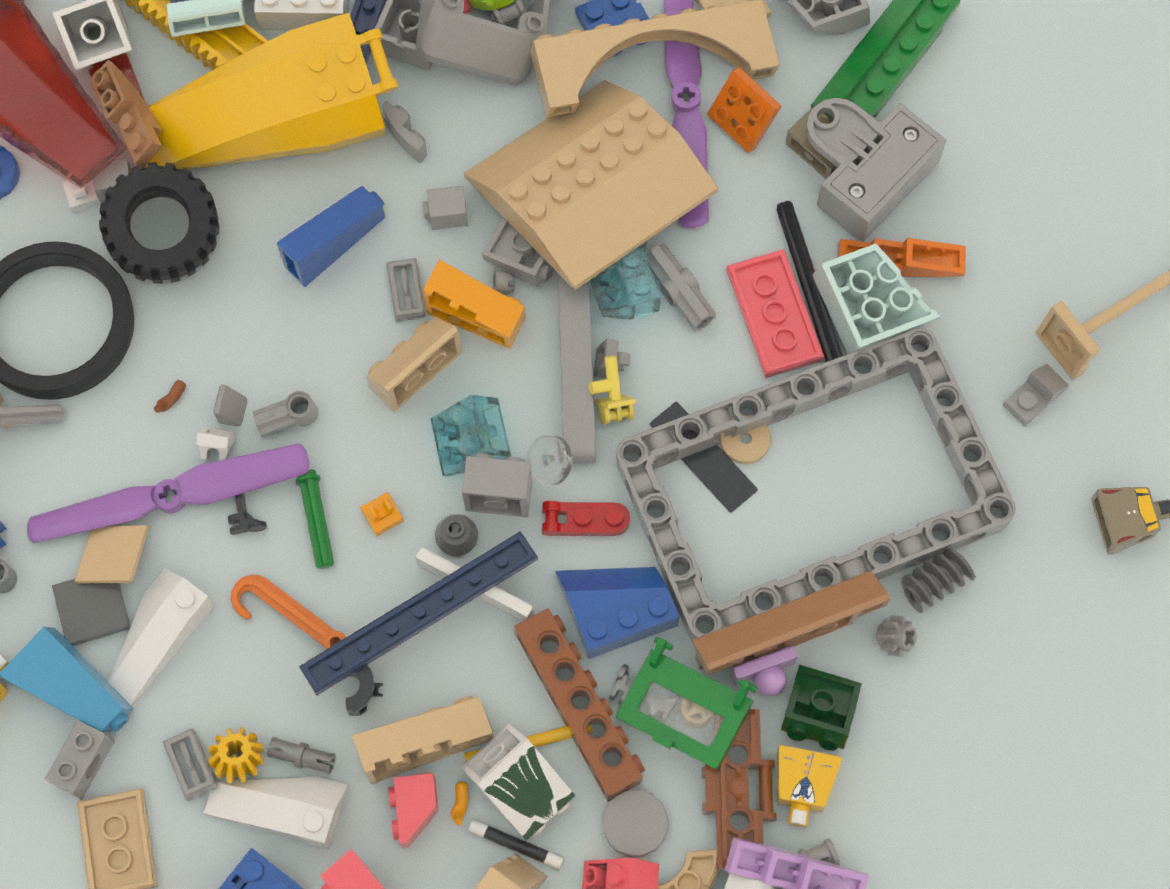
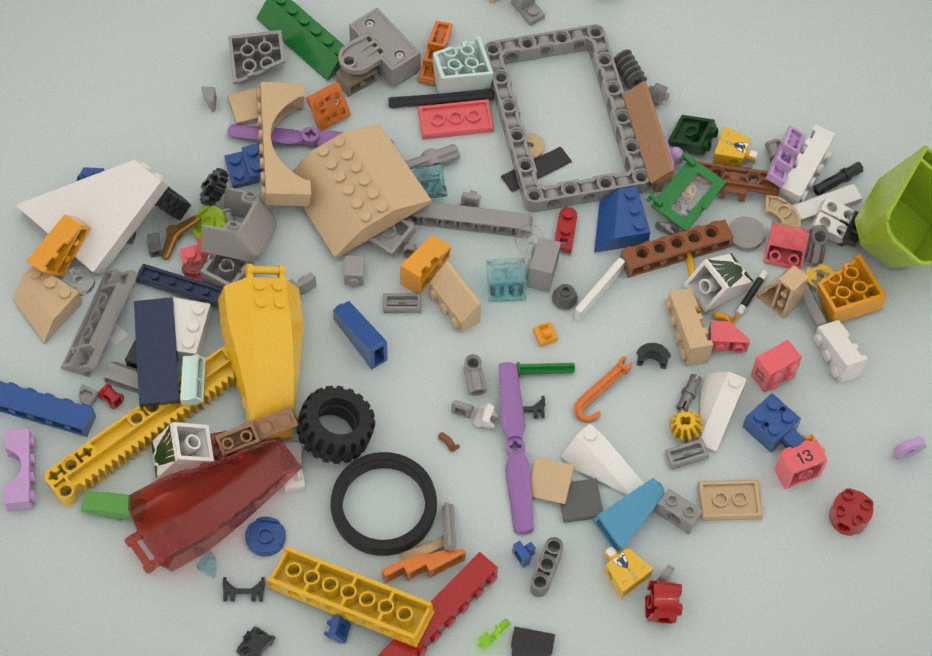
camera: 85 degrees left, 10 degrees down
(418, 613) = (617, 314): dark blue tile -> none
(615, 398) = (497, 202): light yellow arm -> none

